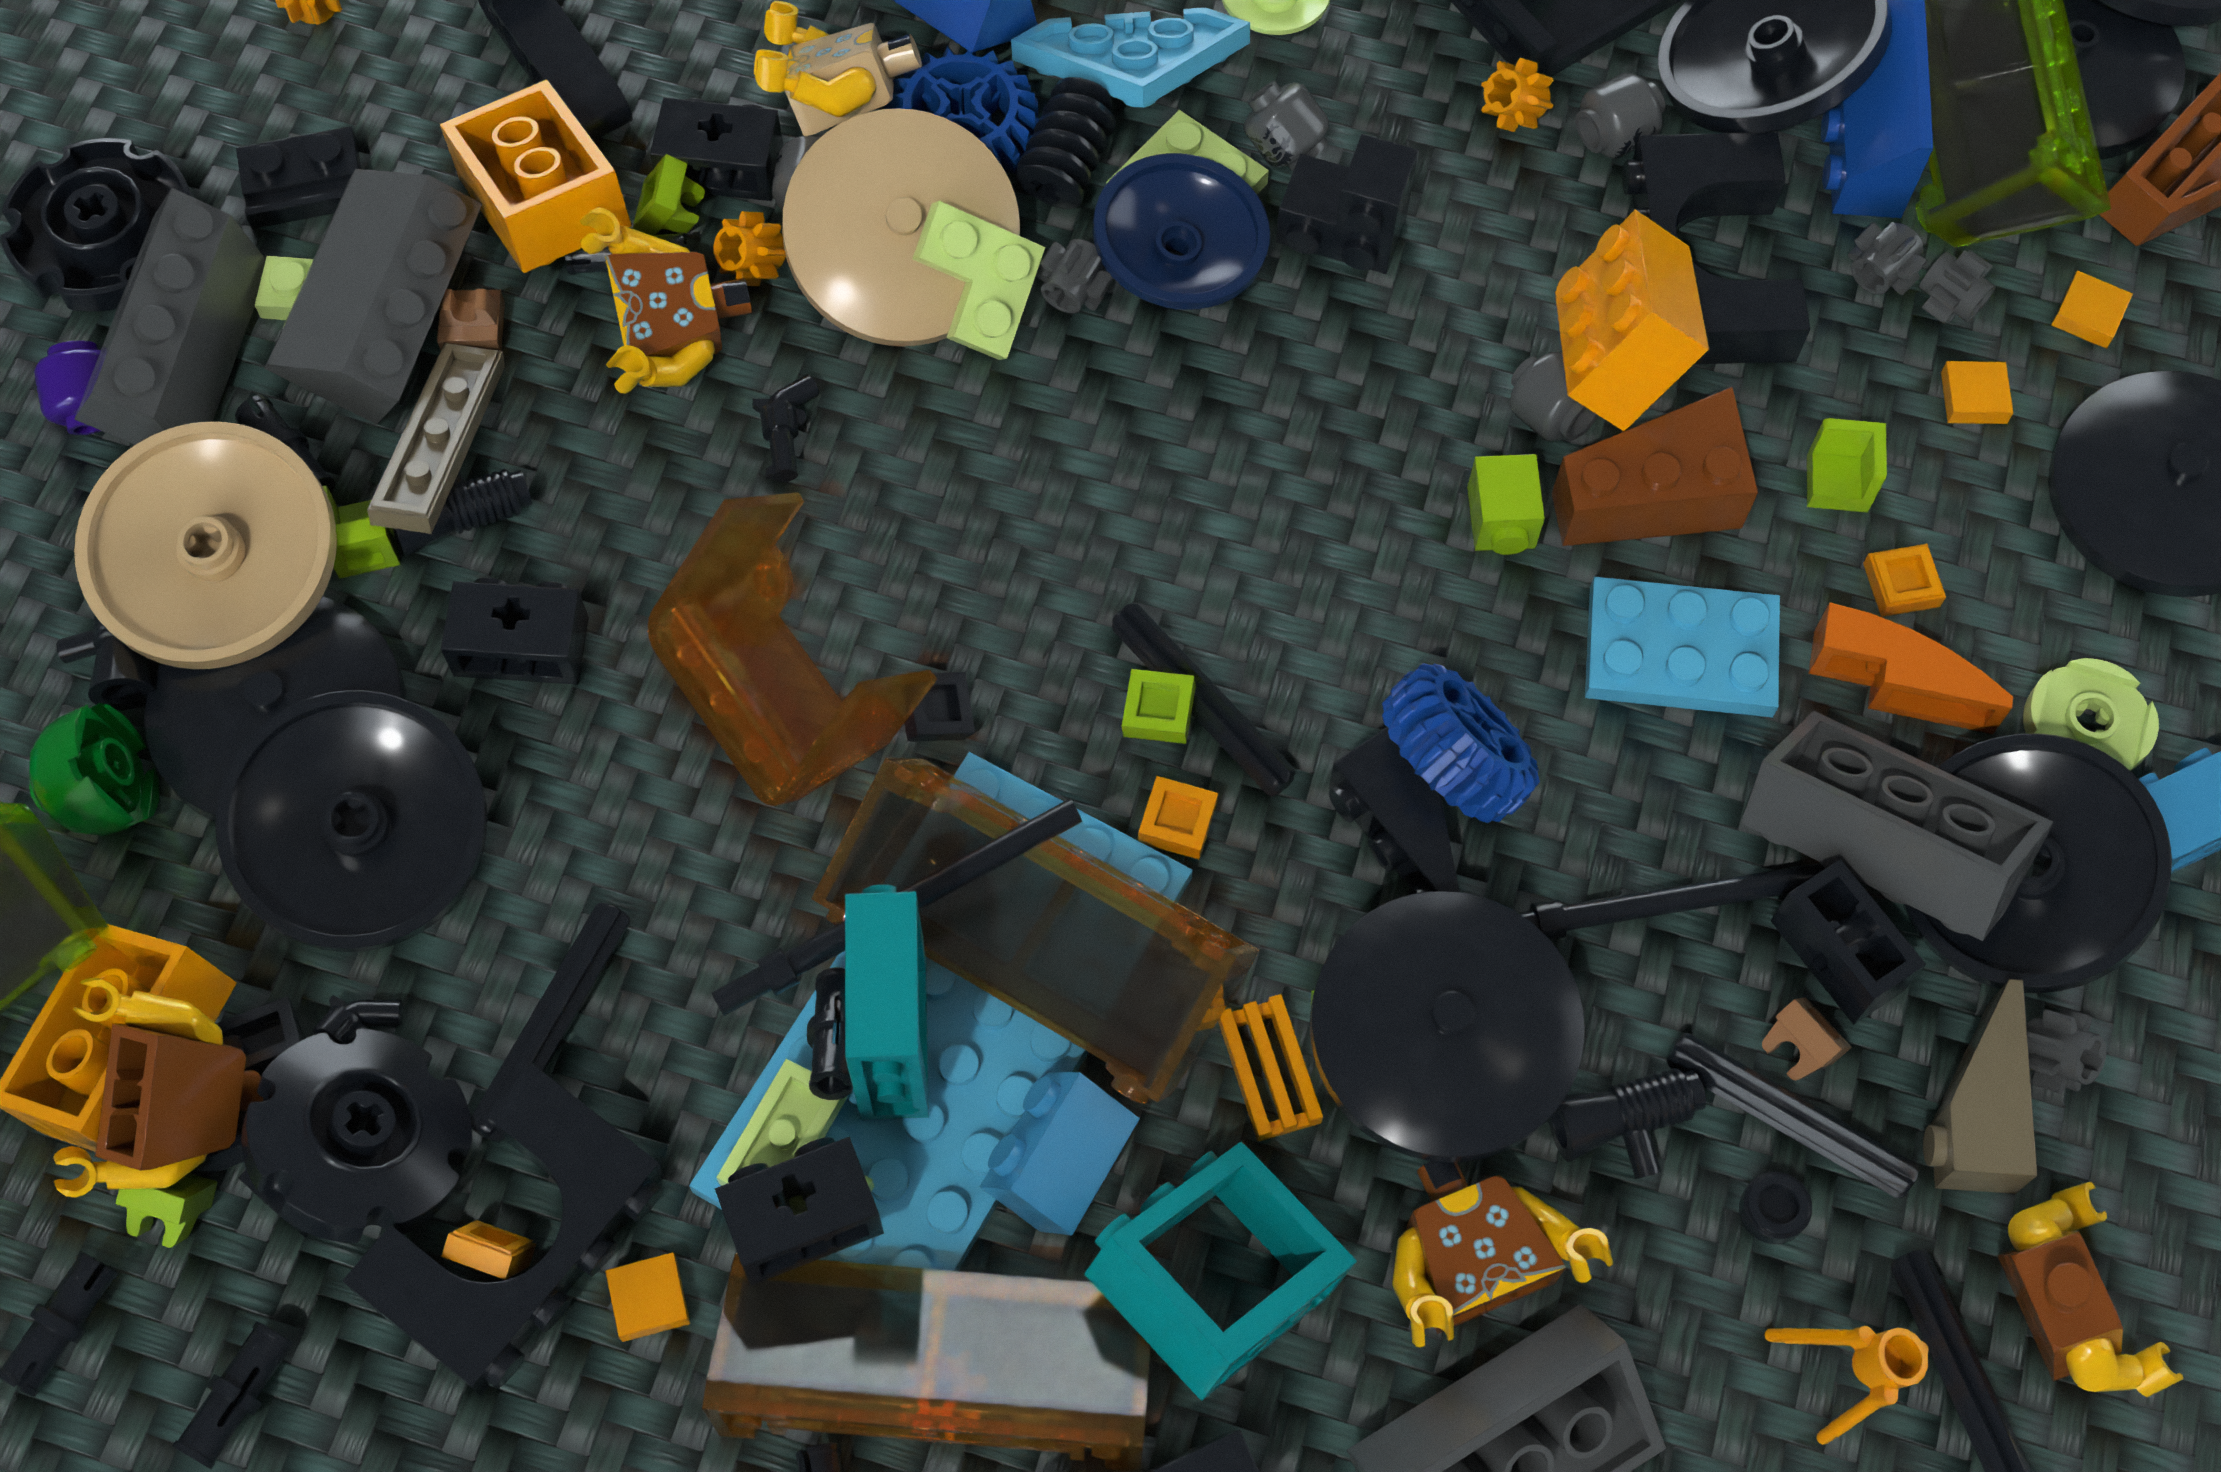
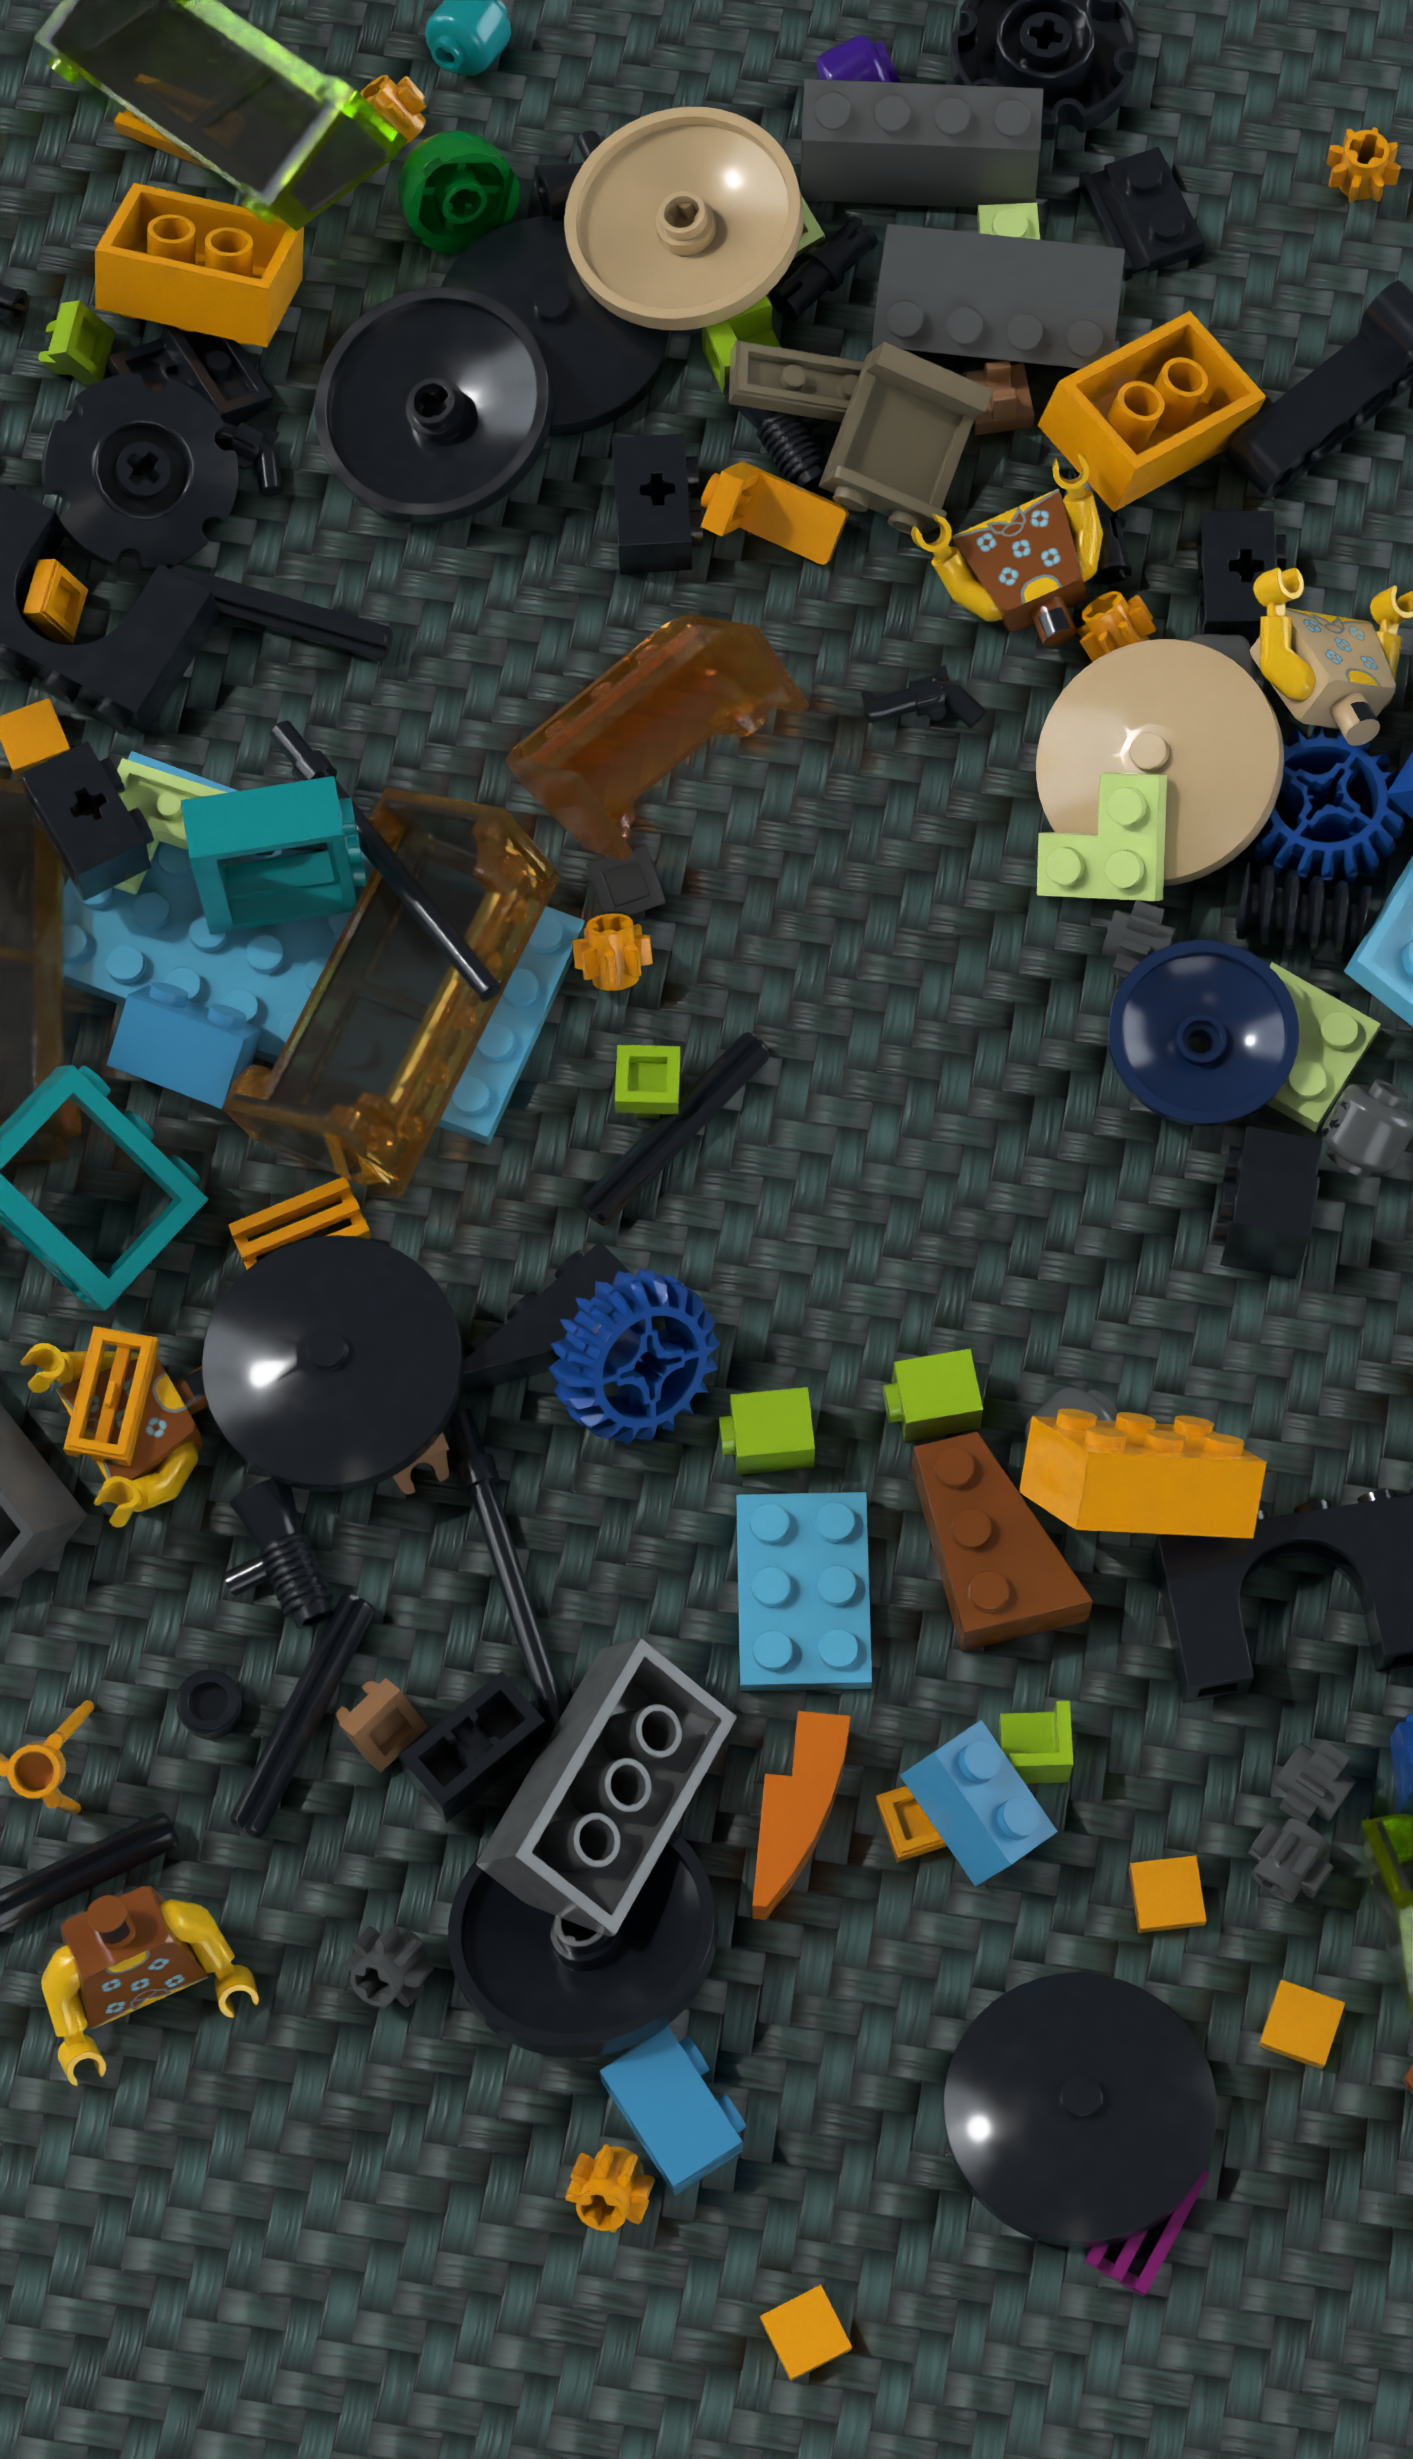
camera: 85 degrees right, 5 degrees up
(165, 1095) = (146, 308): dark orange torso -> none
(506, 390) = (902, 438): none -> dark tan panel
(553, 521) = (773, 510): none -> light orange bracket
(662, 198) = (1166, 539): lime tile -> none
(1013, 724) = (612, 952): none -> light orange gear
(1177, 817) = (540, 1117): light orange plate -> none
(1460, 1281) = (100, 1448): none -> light orange tile
(1530, 646) = (769, 1431): none -> lime brick
(1912, 511) = (978, 1803): none -> dark azure brick
(1985, 1120) = (313, 1892): dark tan slope -> none
(2109, 692) = (737, 2031): yellowish green plate -> none

